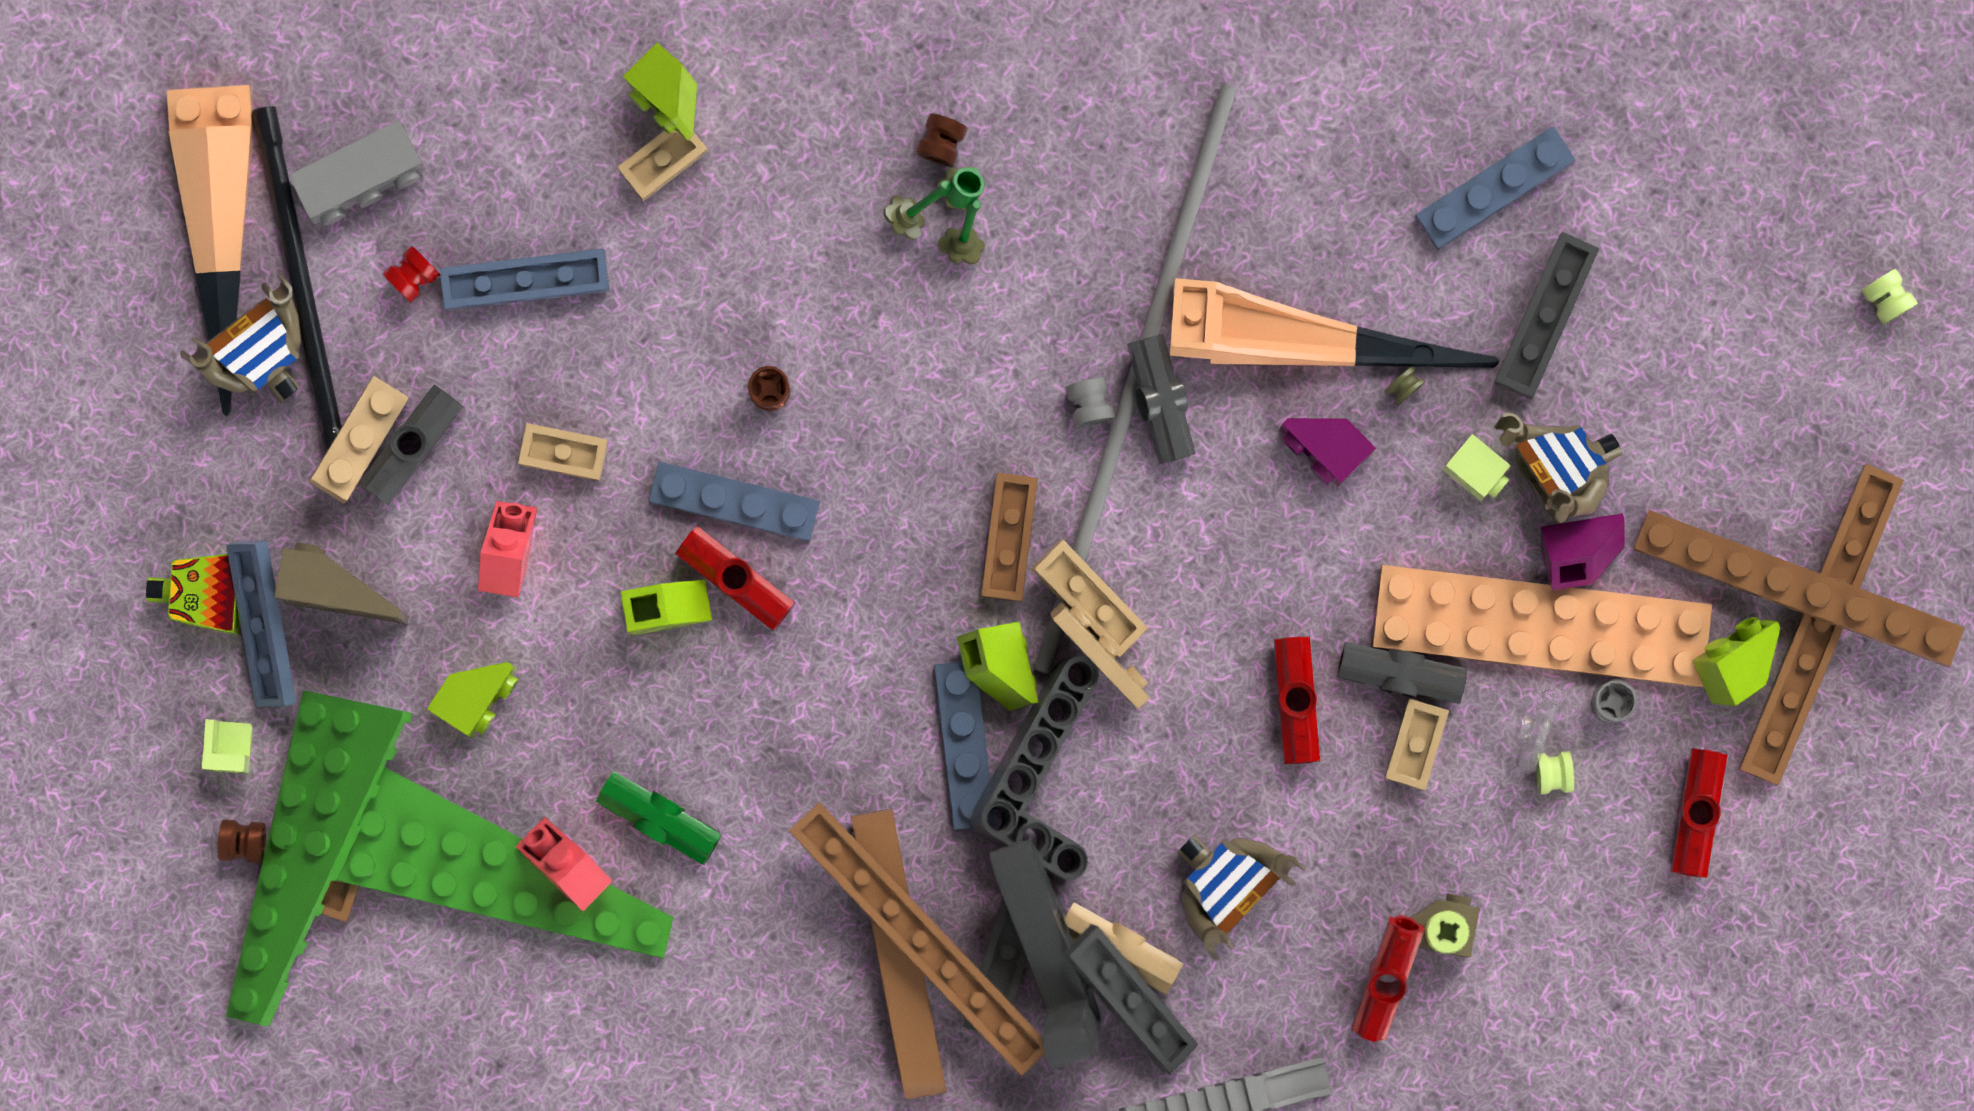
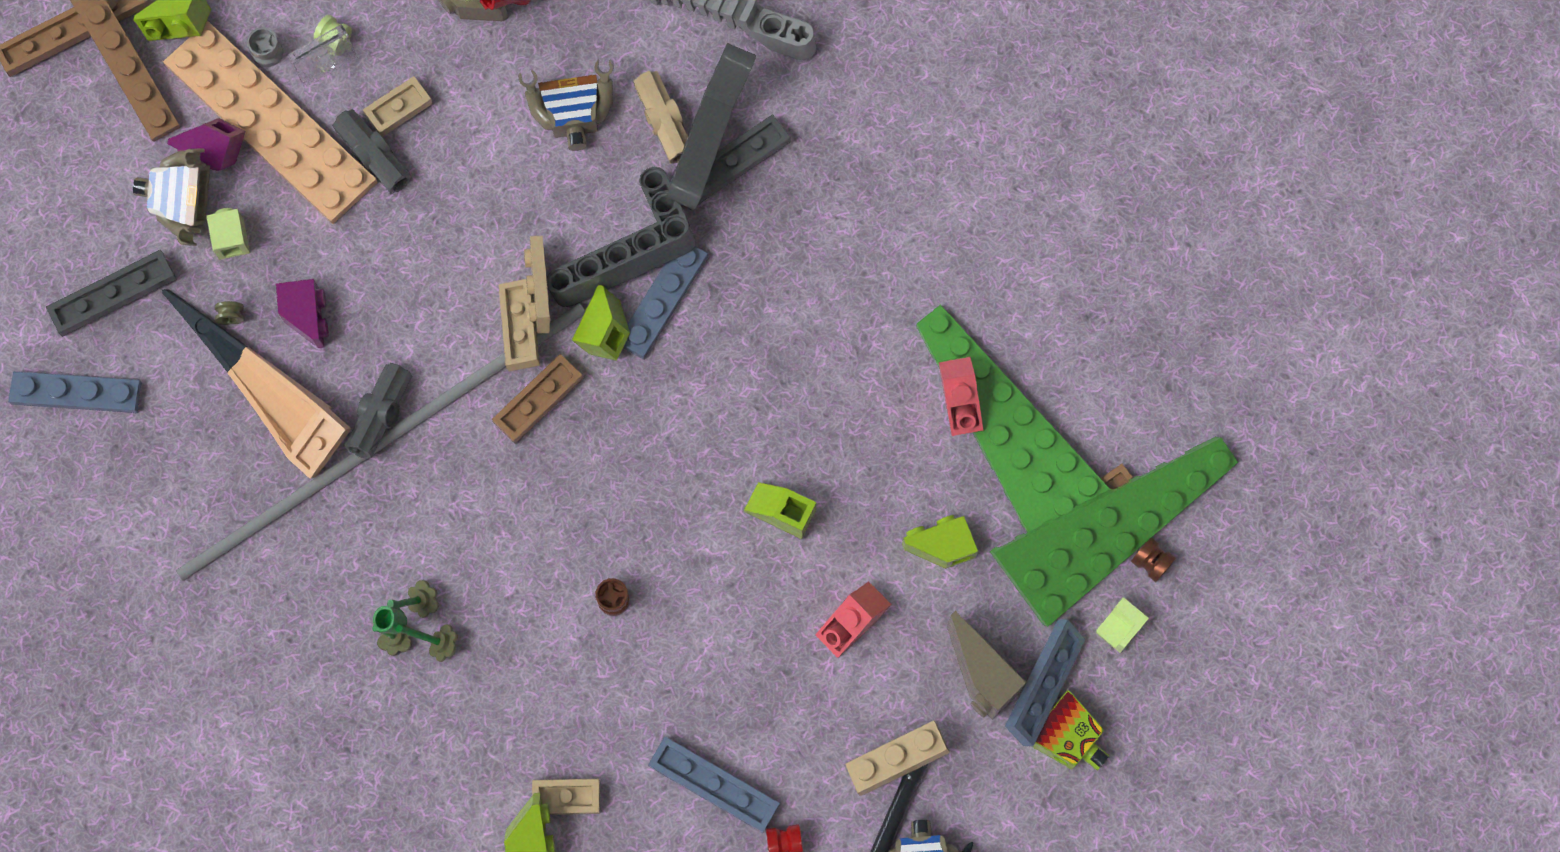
camera: 140 degrees left, 10 degrees down
(429, 423) = (844, 735): dark grey piece -> none
(563, 452) = (772, 654): tan plate -> none
(658, 818) = (881, 386): green piece -> none
(713, 562) = (720, 477): red piece -> none
(734, 501) = (689, 546): sand blue plate -> none
(902, 980) = (794, 206): medium nougat beam -> none
(919, 938) = (777, 197): medium nougat plate -> none
(941, 140) = (381, 674): copper wheel -> none
(1090, 402) = (423, 442): light grey wheel -> none
(1130, 999) = (680, 78): dark grey plate -> none
(1293, 672) = (455, 163): red piece -> none

